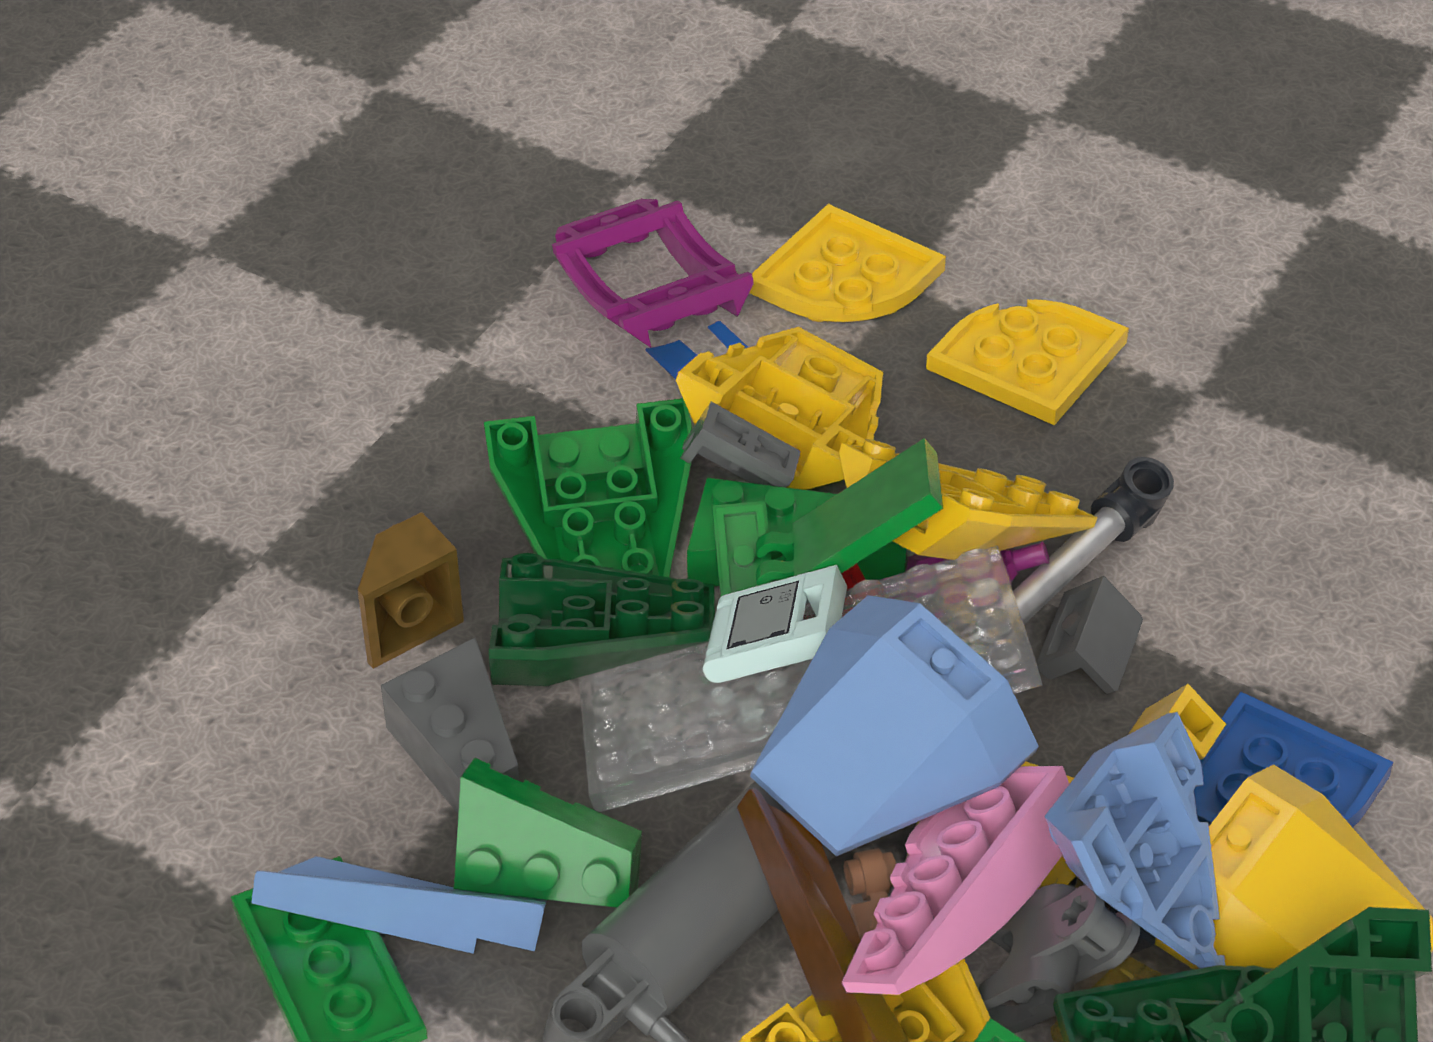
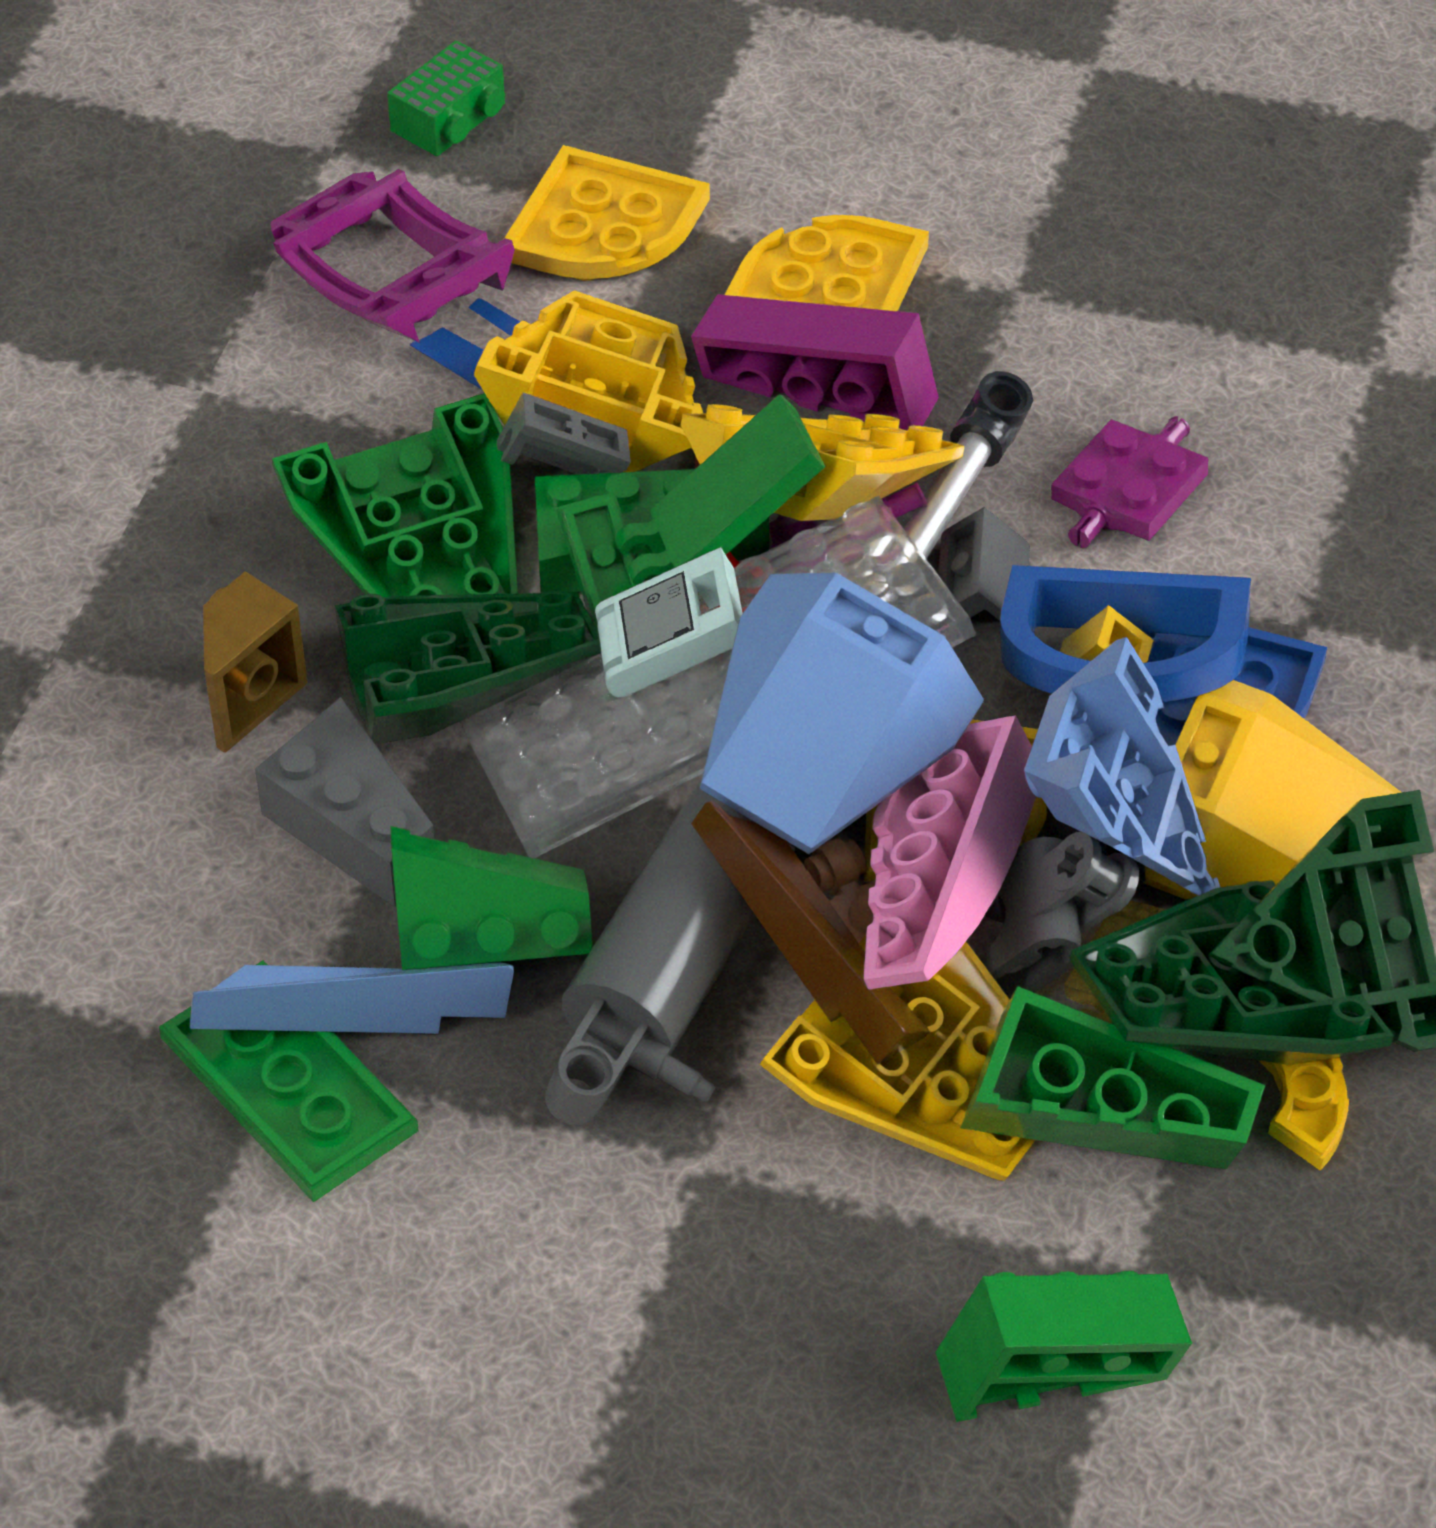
camera: 15 degrees left, 5 degrees up
(741, 149) = (446, 98): none -> green brick
(996, 417) = (820, 355): none -> magenta wedge
(1233, 689) = (1149, 601): none -> blue window
(1251, 577) = (1129, 480): none -> magenta plate

